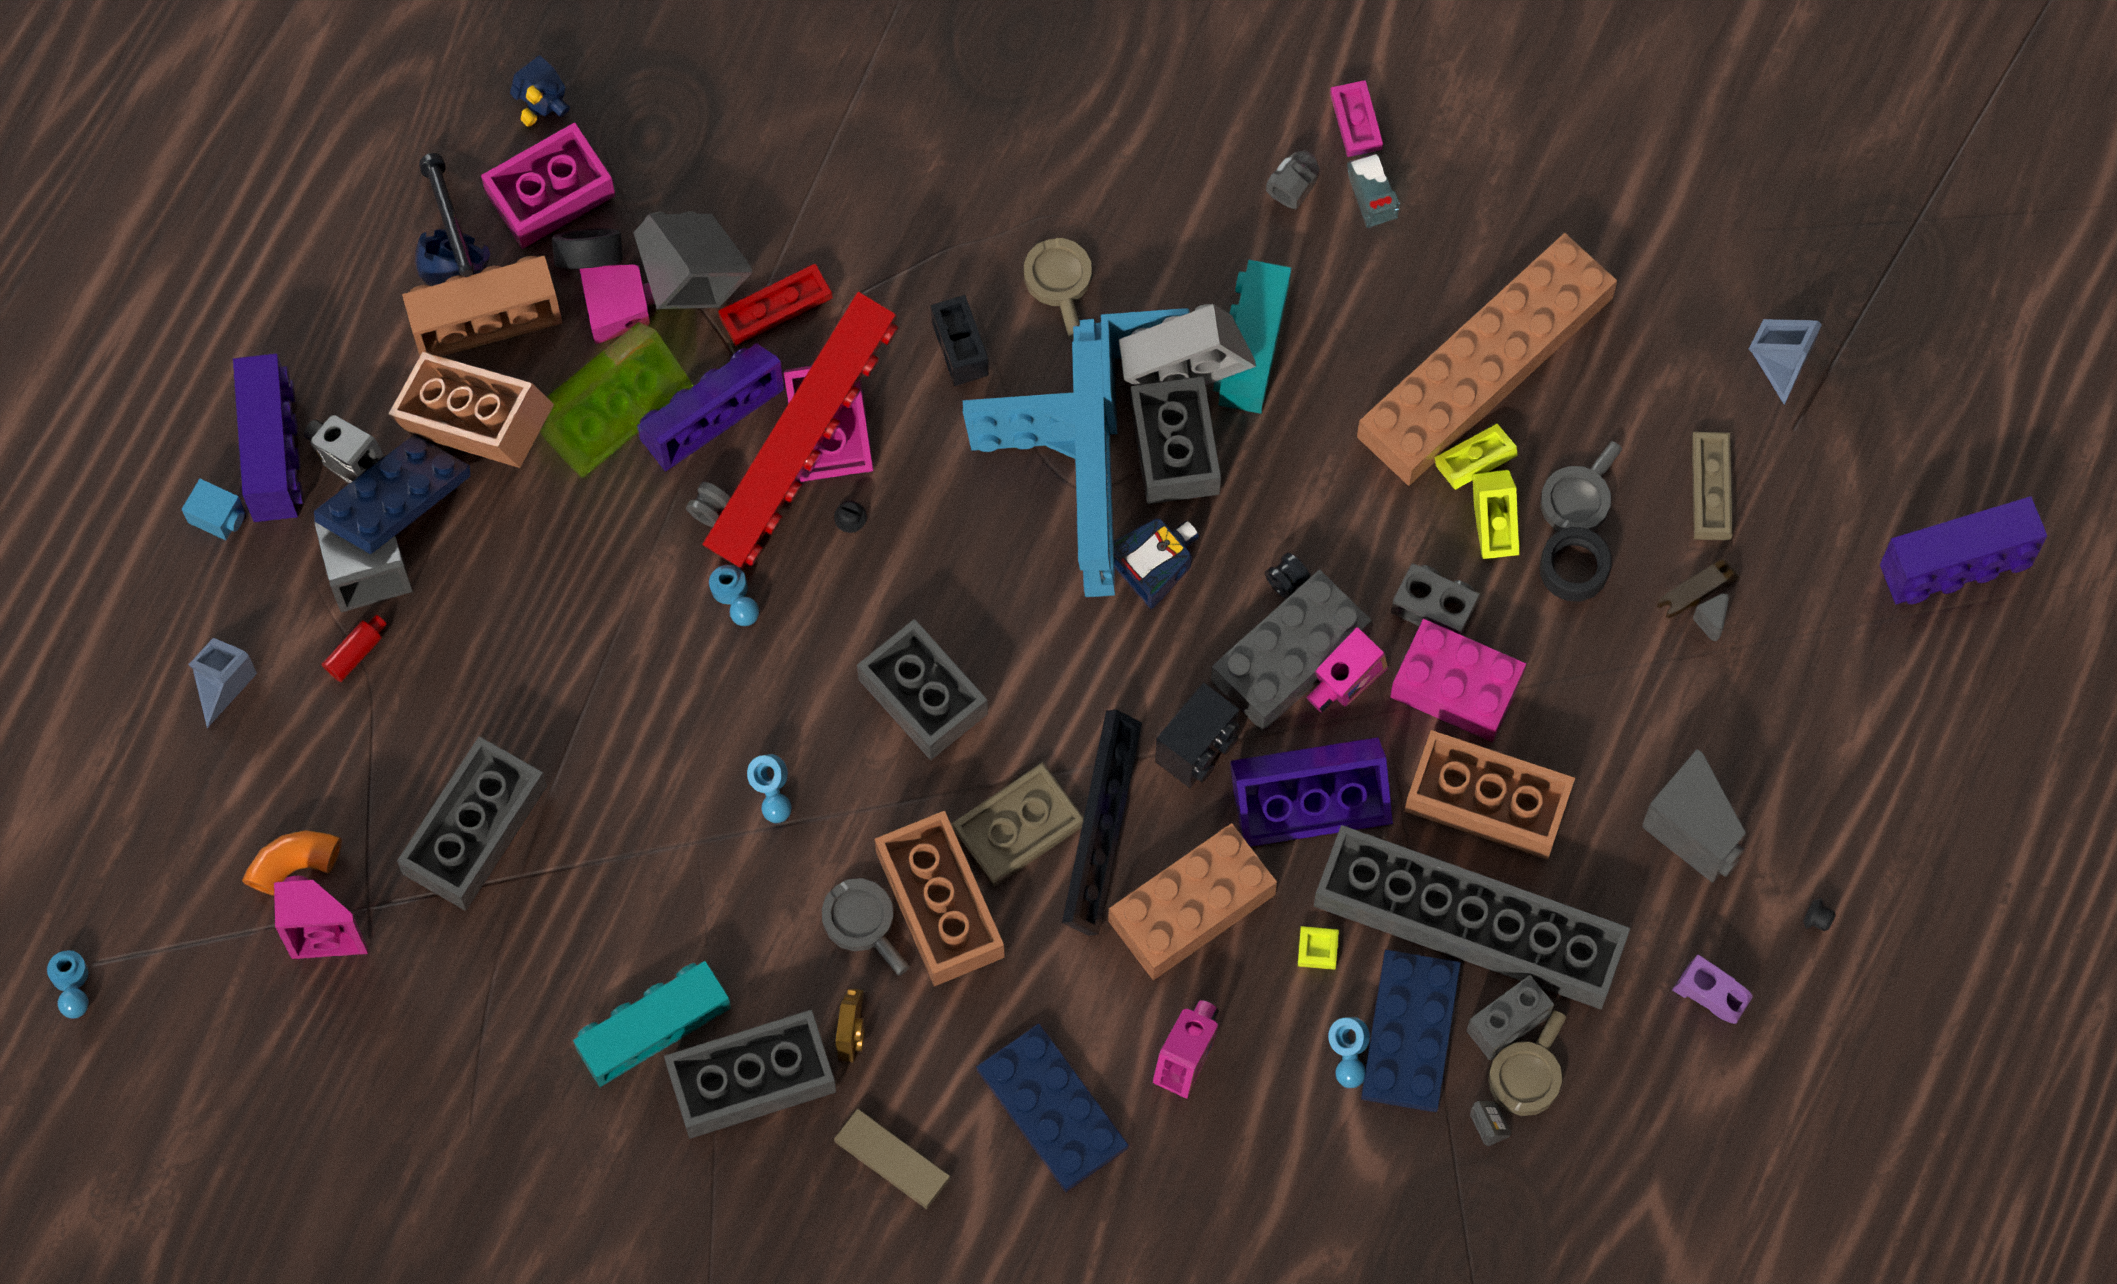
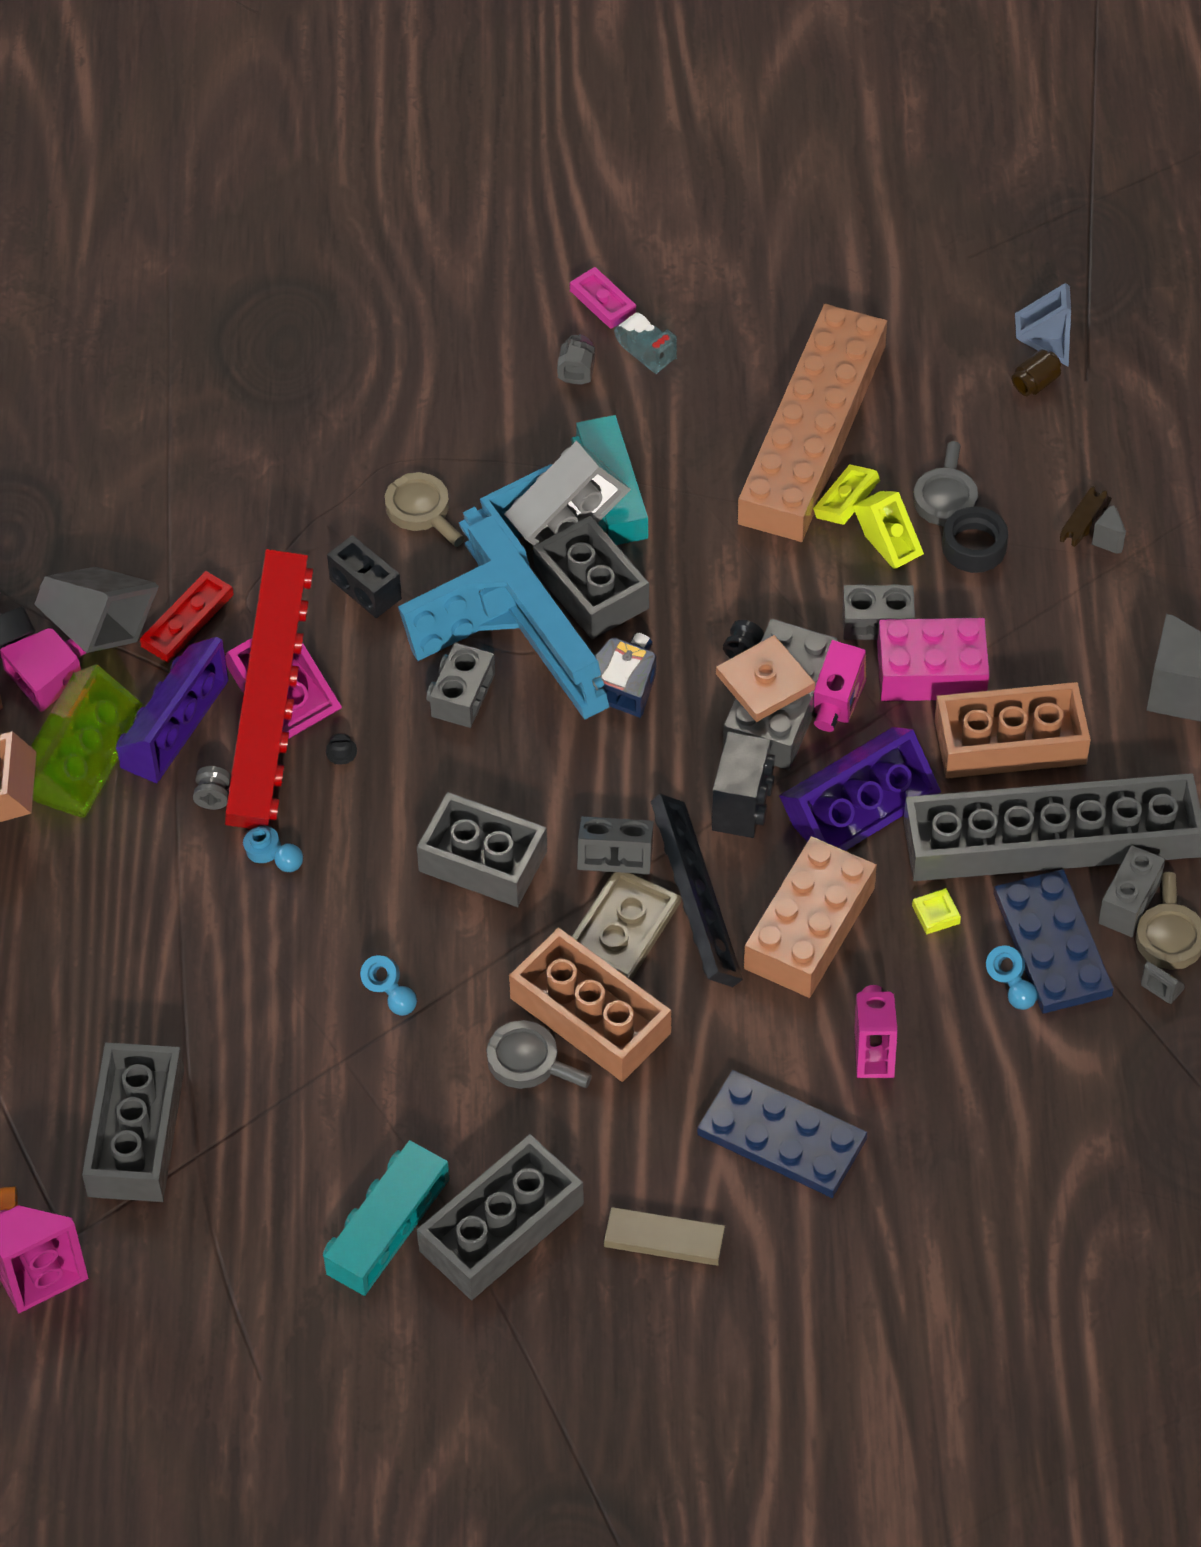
camera: 25 degrees left, 15 degrees down
(850, 1026) = (570, 1139): pearl gold wing -> none
(1003, 505) = (463, 675): none -> dark grey brick
(1049, 742) = (615, 845): none -> dark grey brick
(1274, 637) = (765, 678): none -> nougat plate
(1711, 486) = (1048, 443): dark tan tile -> none
(1743, 402) = (1036, 372): none -> dark brown brick

